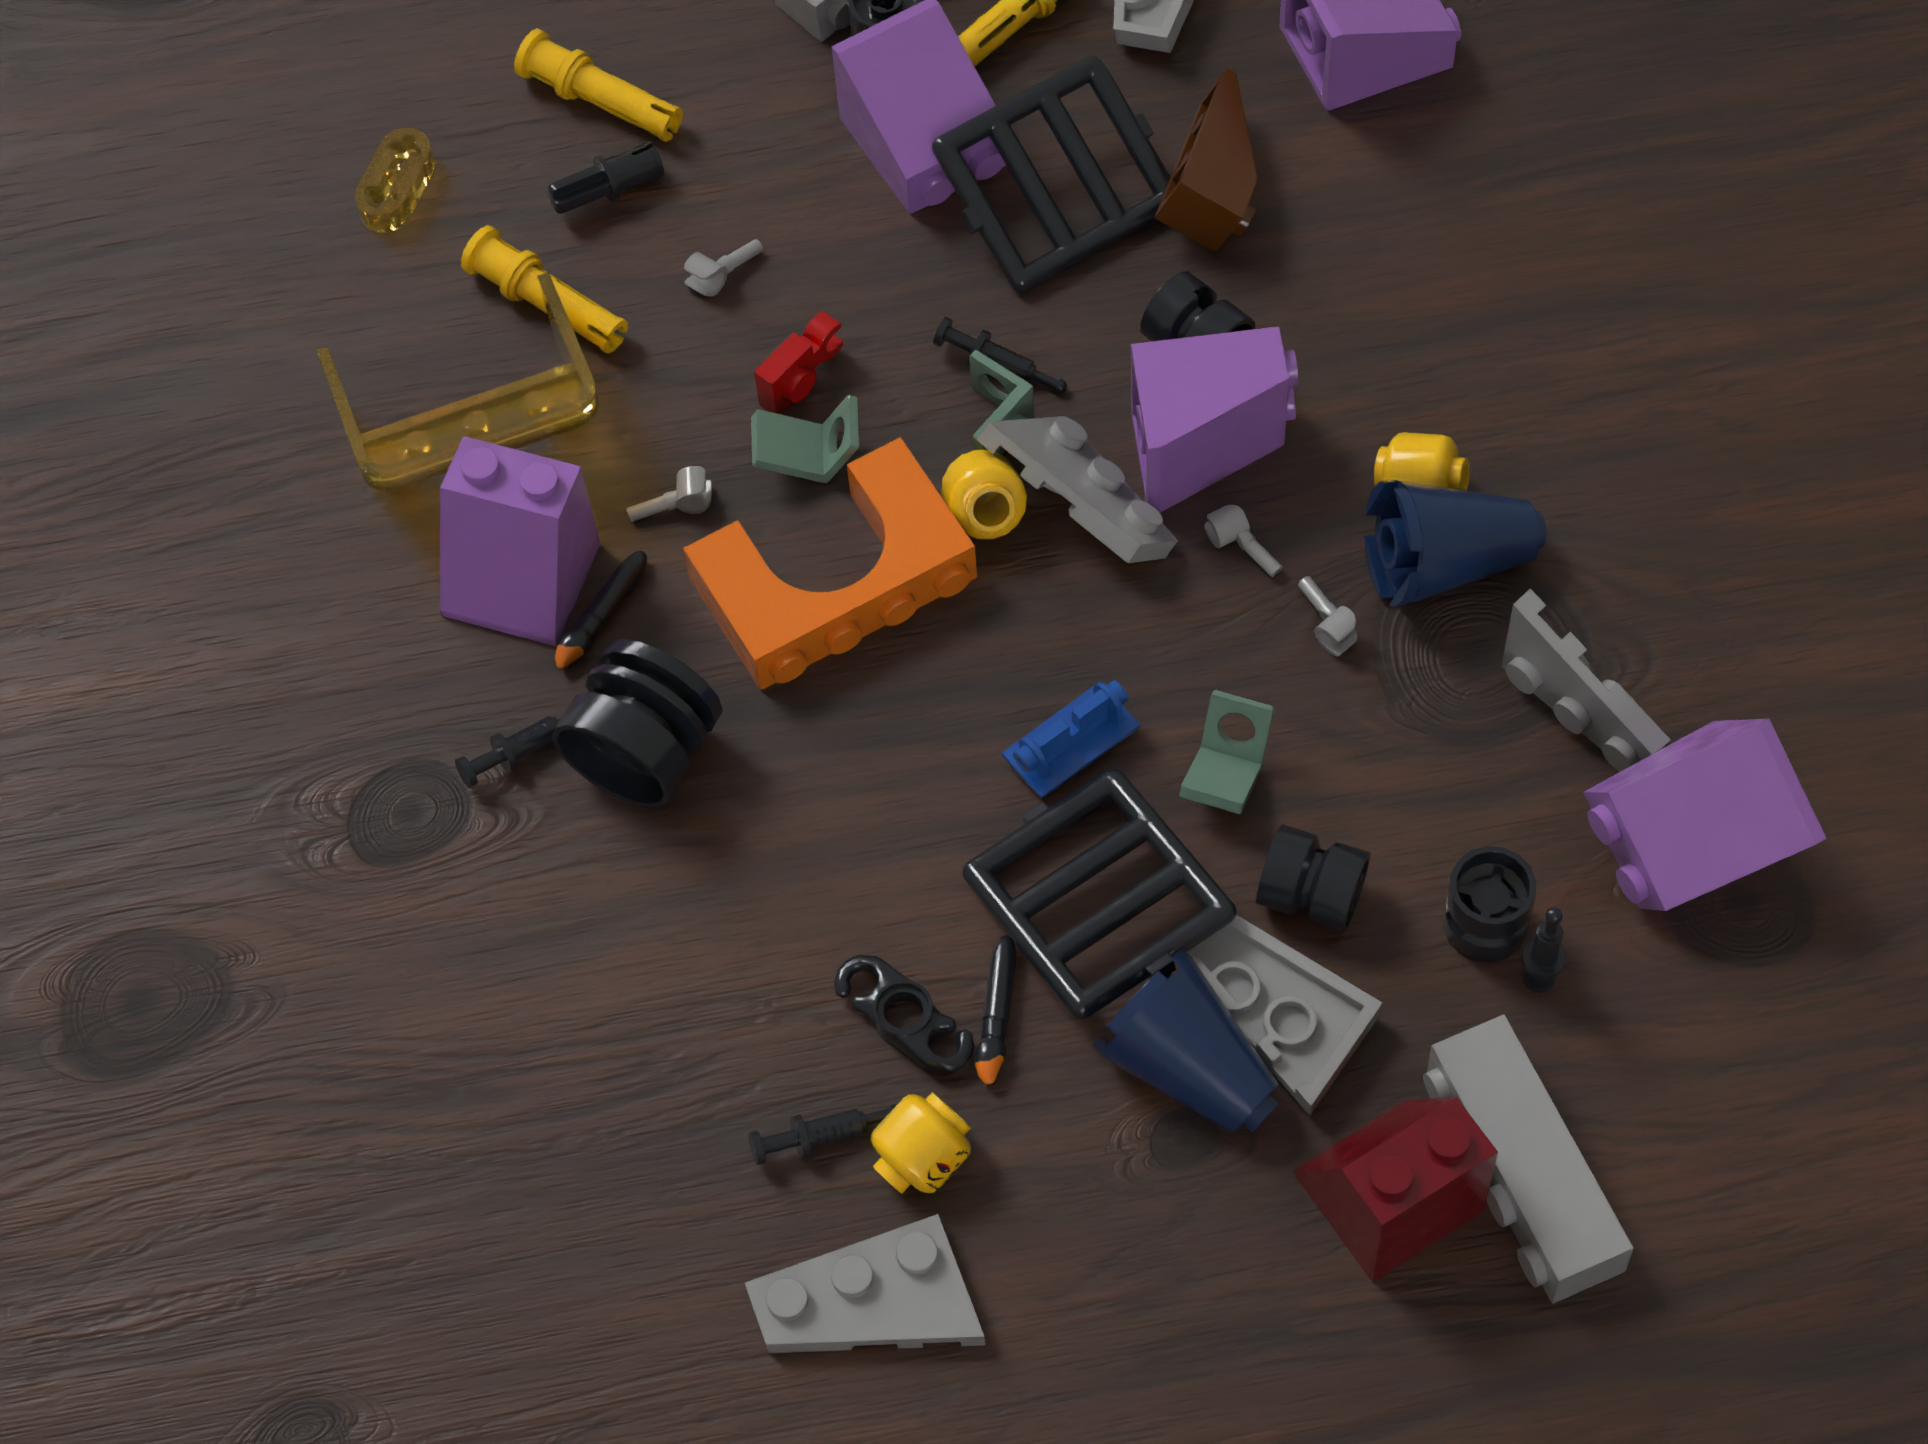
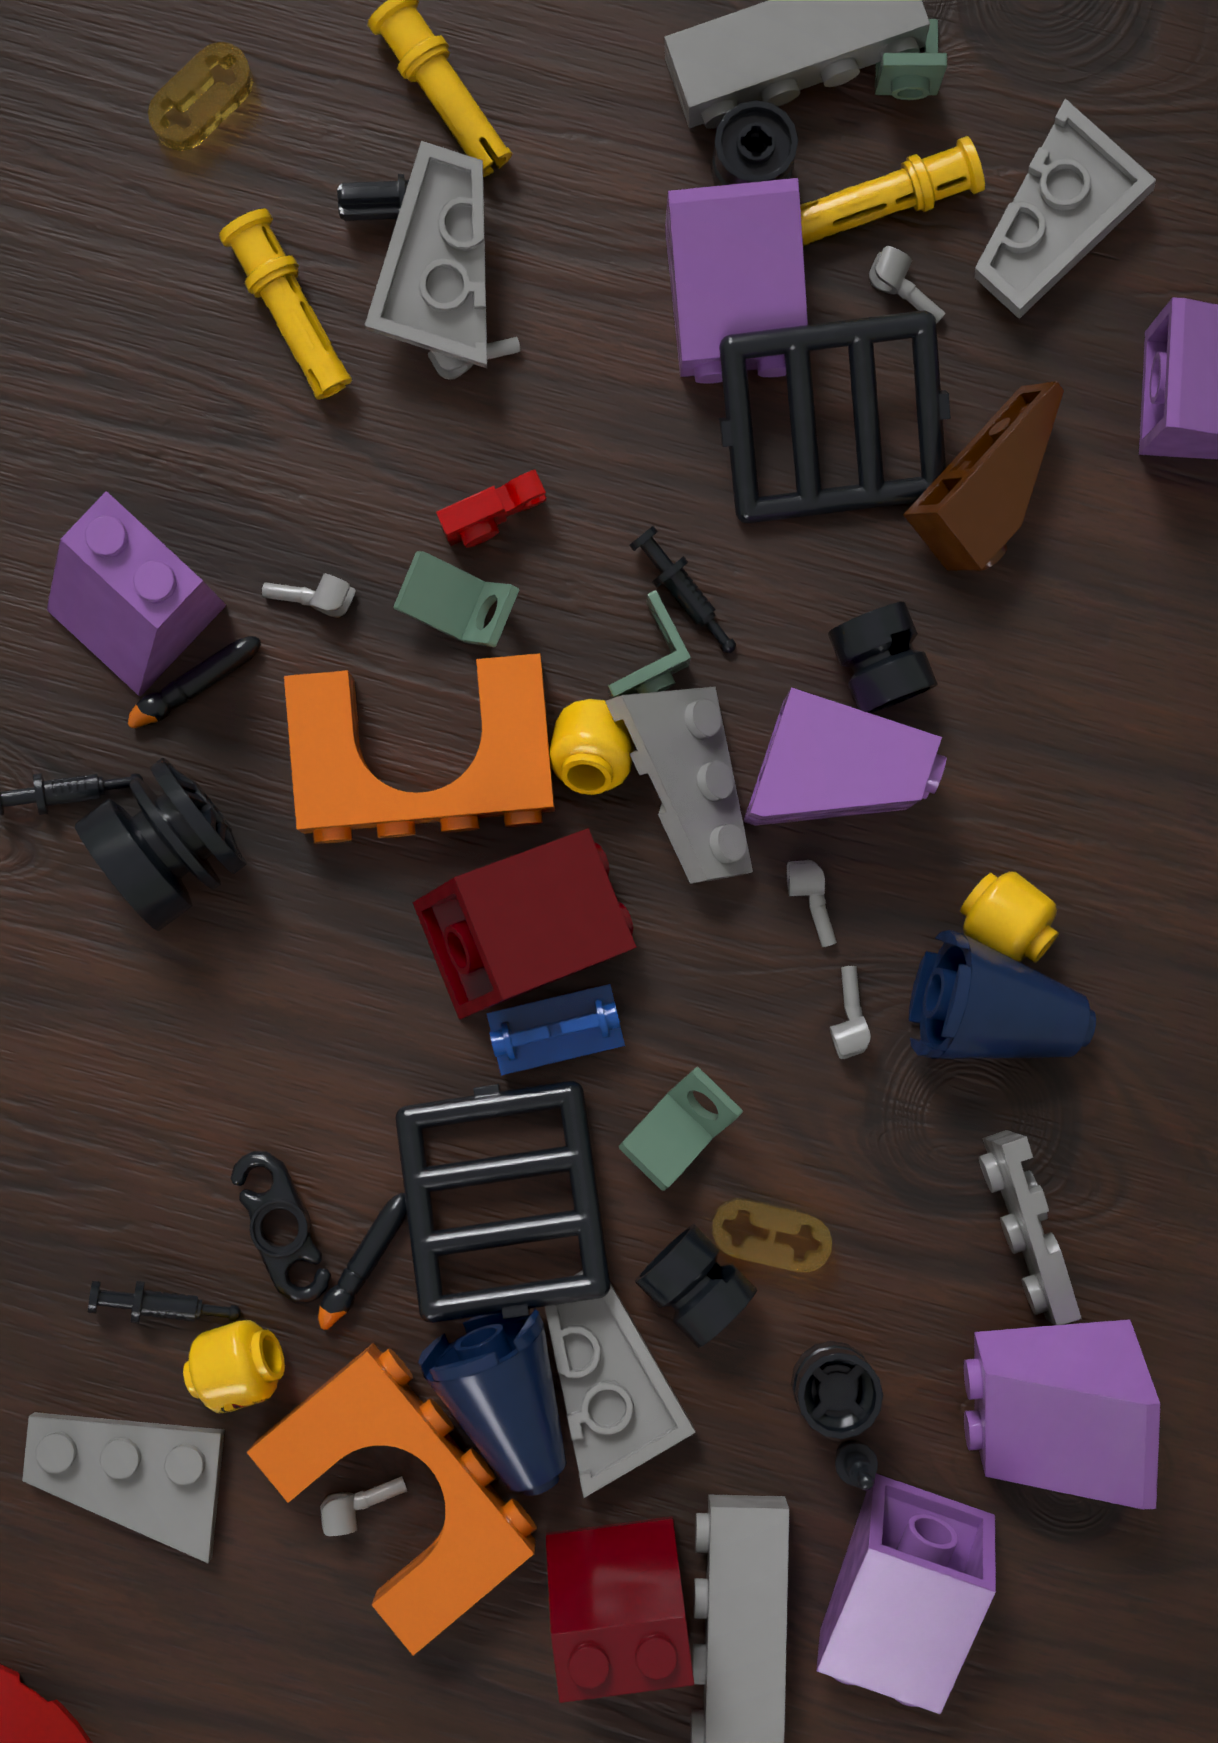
camera: 20 degrees right, 25 degrees up
(502, 416) = (60, 455): clear yellow windscreen -> none
(659, 198) = (435, 261): none -> light grey wing
(993, 659) = (524, 922): none -> dark red slope
(1044, 62) = (889, 277): none -> light grey hand
(1074, 1118) = (376, 1407): none -> orange arch
(1087, 1233) = (339, 1509): none -> light grey hand
(1358, 815) = (767, 1250): none -> clear yellow beam
(1660, 1057) = (909, 1595): none -> medium lavender slope

